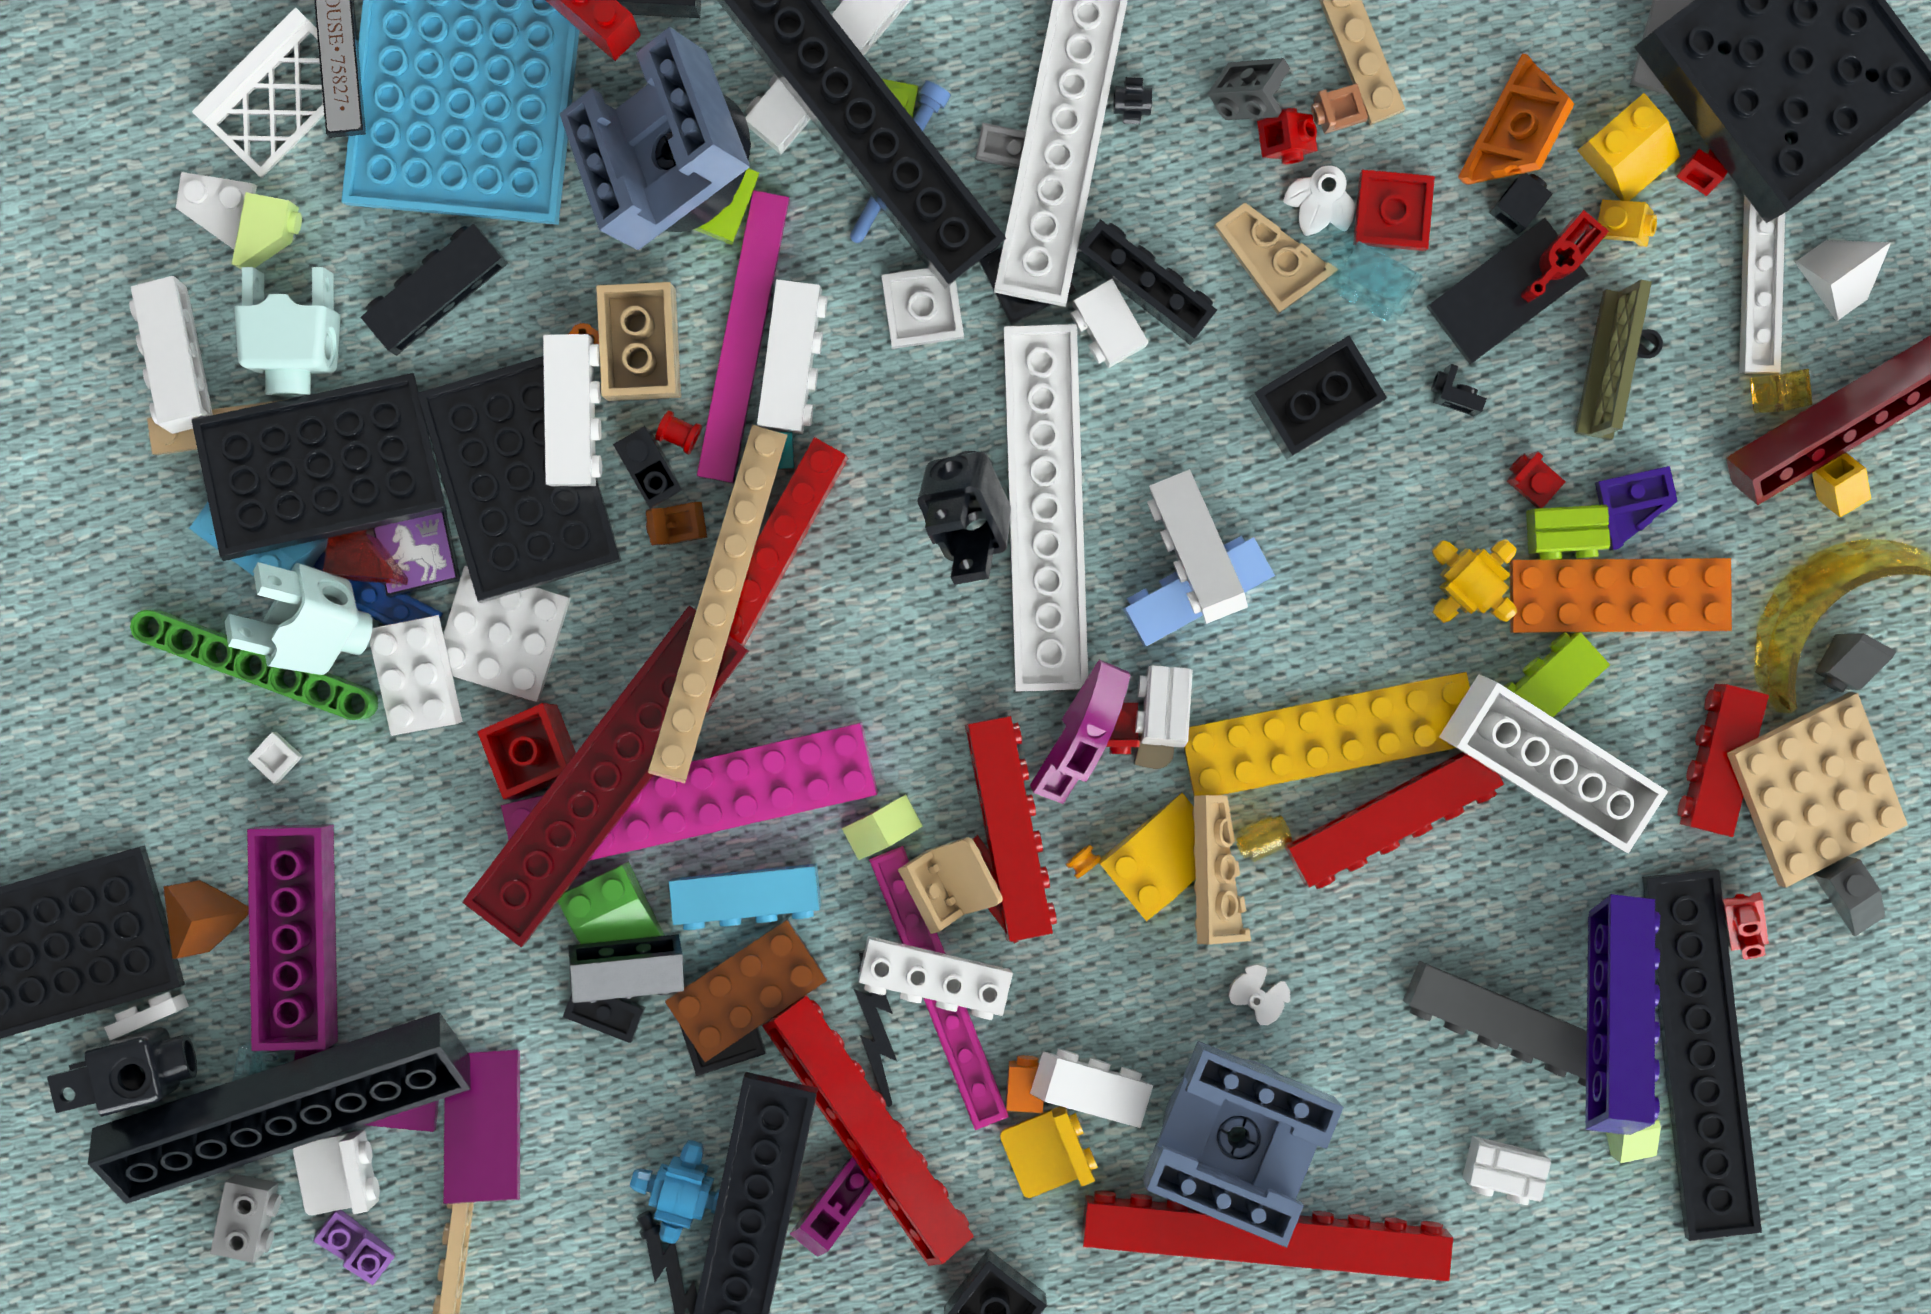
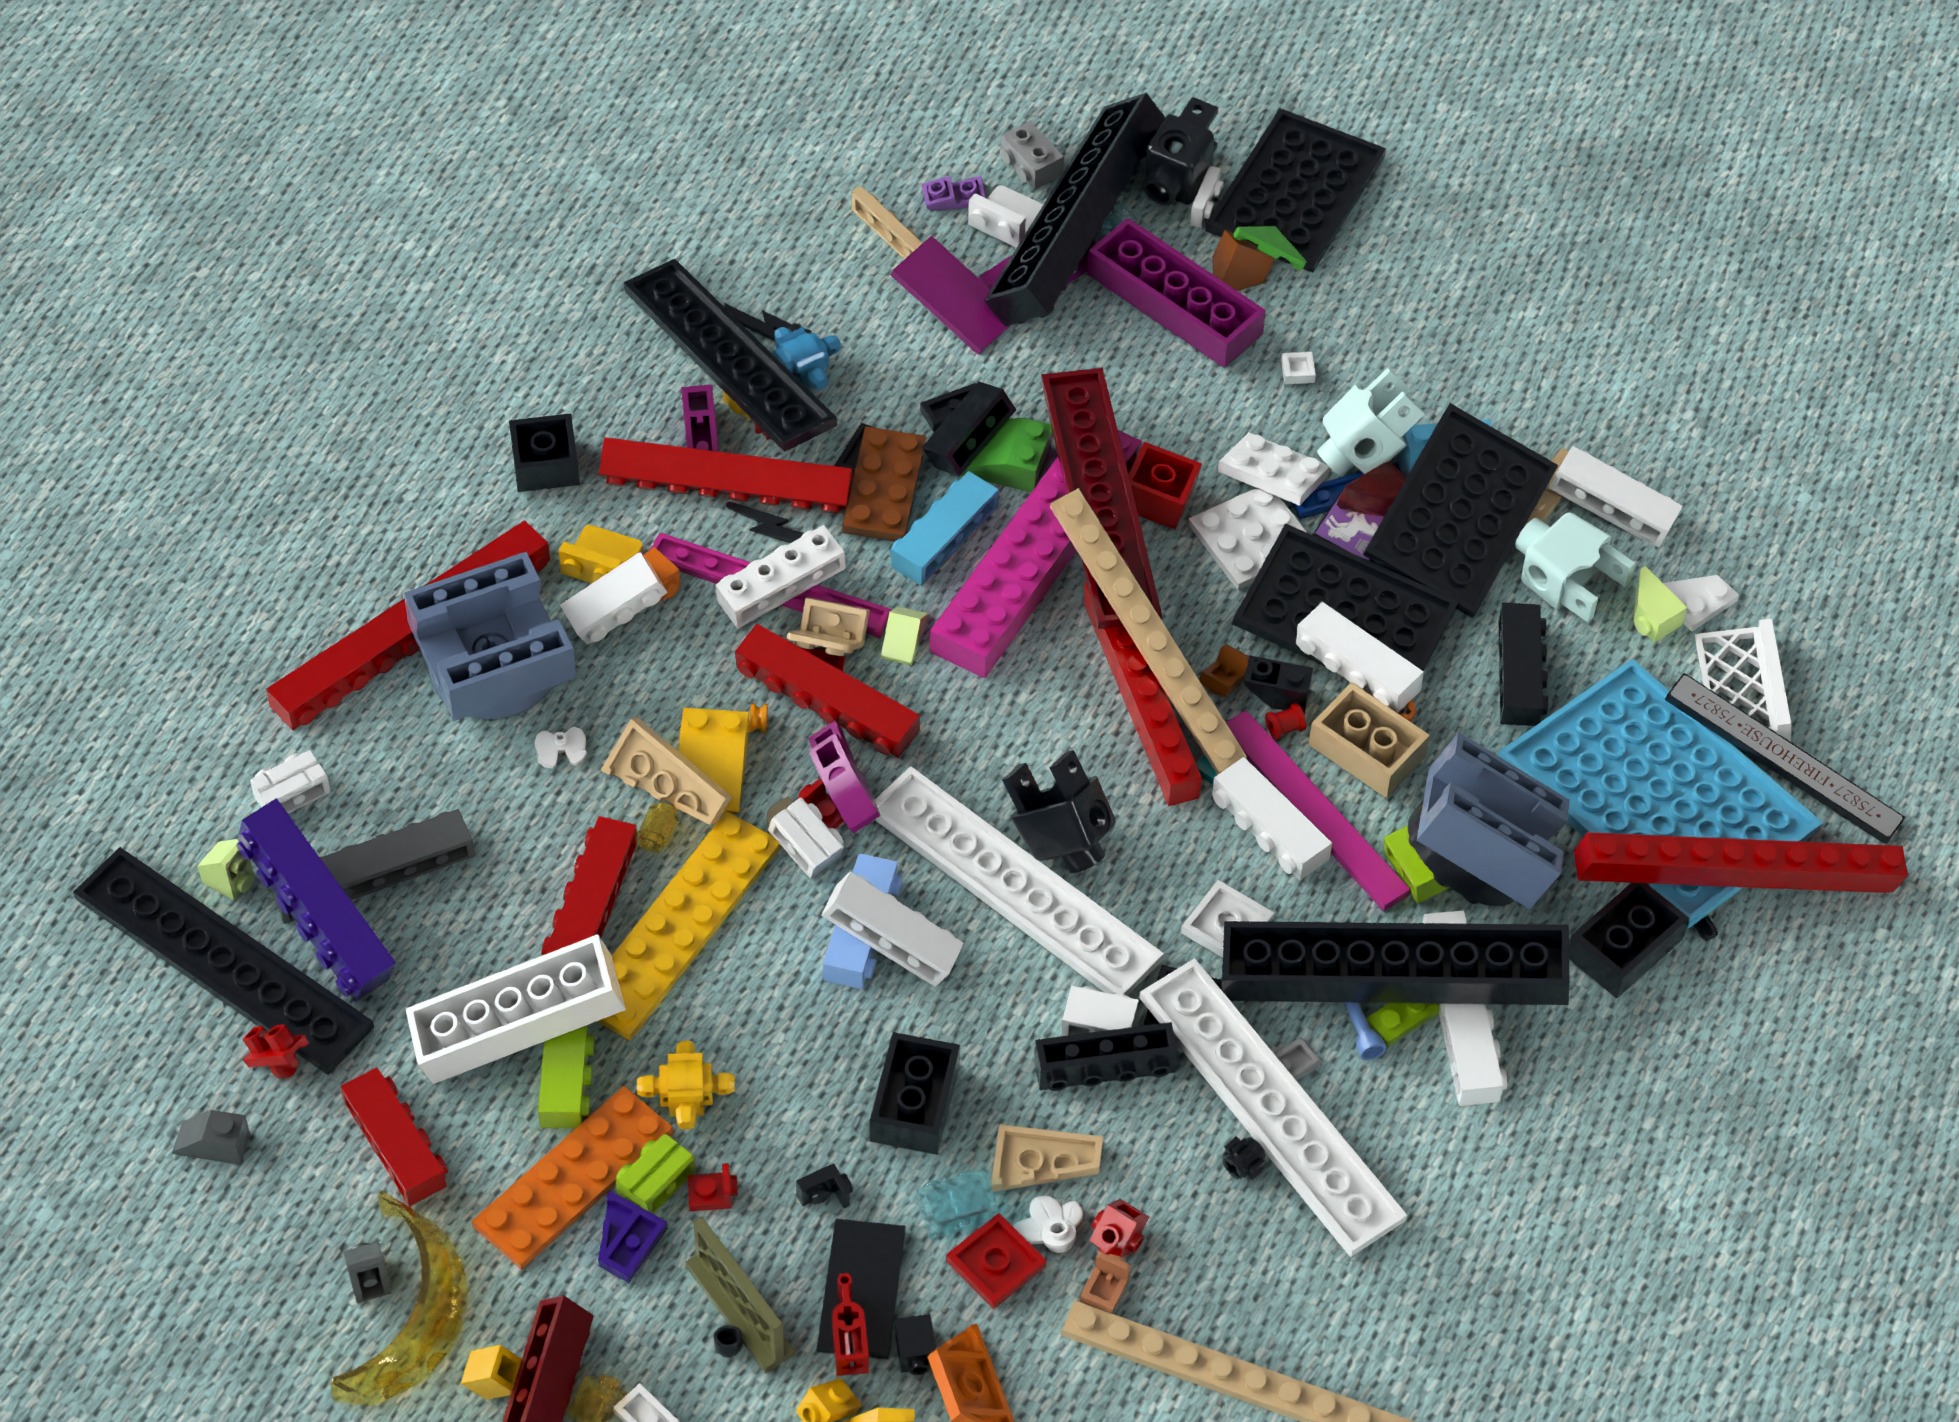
camera: 135 degrees right, 35 degrees down
(155, 898) = (1272, 243): none -> bright green tile
(237, 665) = (1422, 376): bright green beam -> none
(1248, 88) = (1179, 1227): dark grey bracket -> none
(1817, 789) = (308, 1171): tan plate -> none

